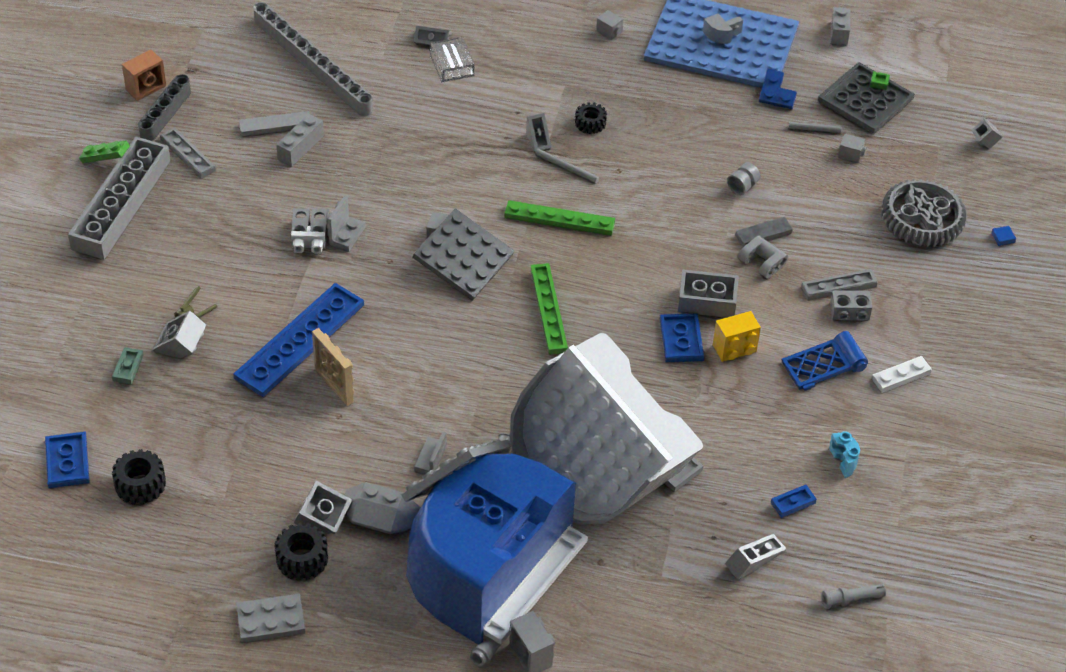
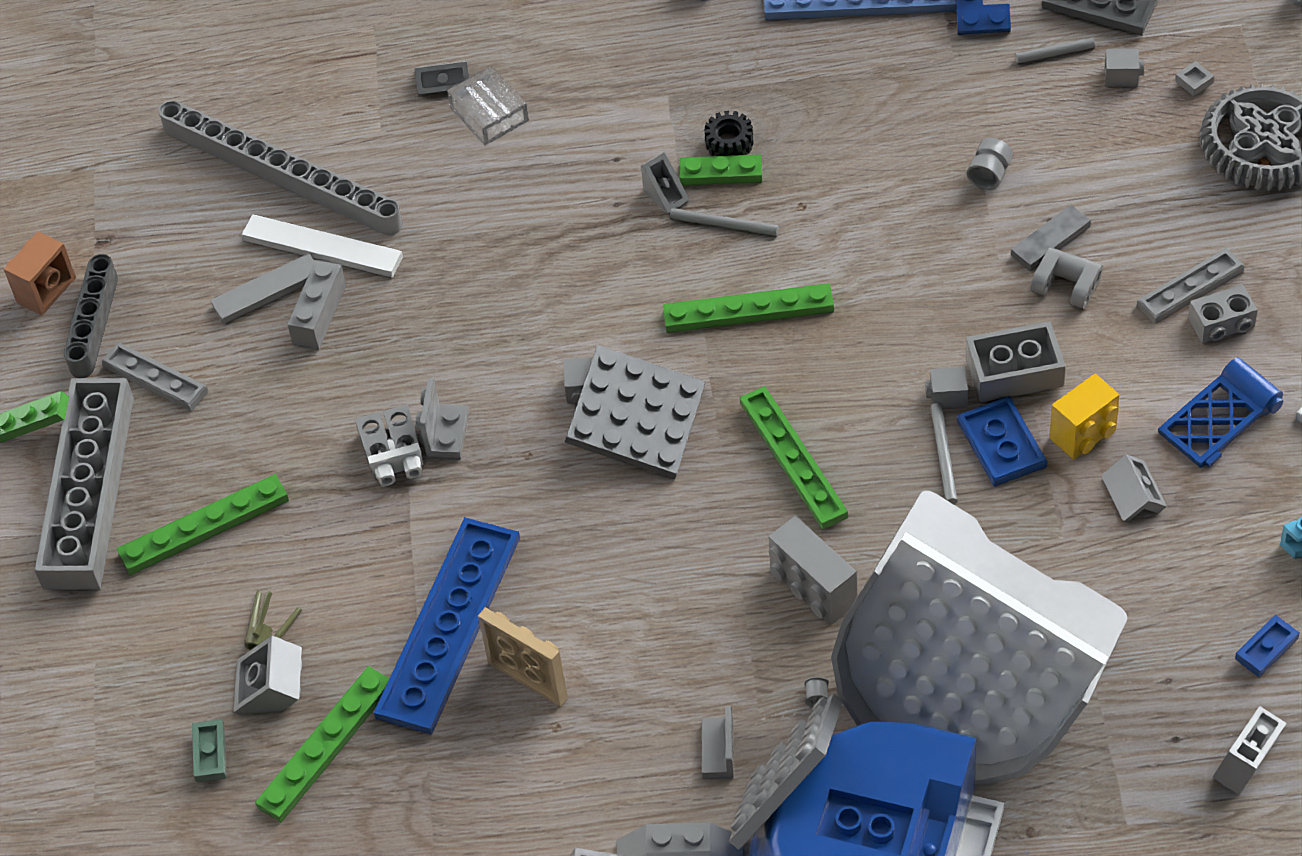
camera: 10 degrees left, 5 degrees up
(179, 242) = (202, 524): none -> bright green plate
(195, 384) = (323, 745): none -> bright green plate
(319, 109) = (322, 245): none -> white tile
(523, 361) = (812, 570): none -> light grey brick
(578, 136) = (721, 169): none -> bright green plate
(642, 334) = (944, 453): none -> light grey bar
(660, 297) = (948, 387): none -> light grey brick
(751, 386) = (1133, 487): none -> light grey panel
(894, 167) = (1194, 78): none -> light grey plate

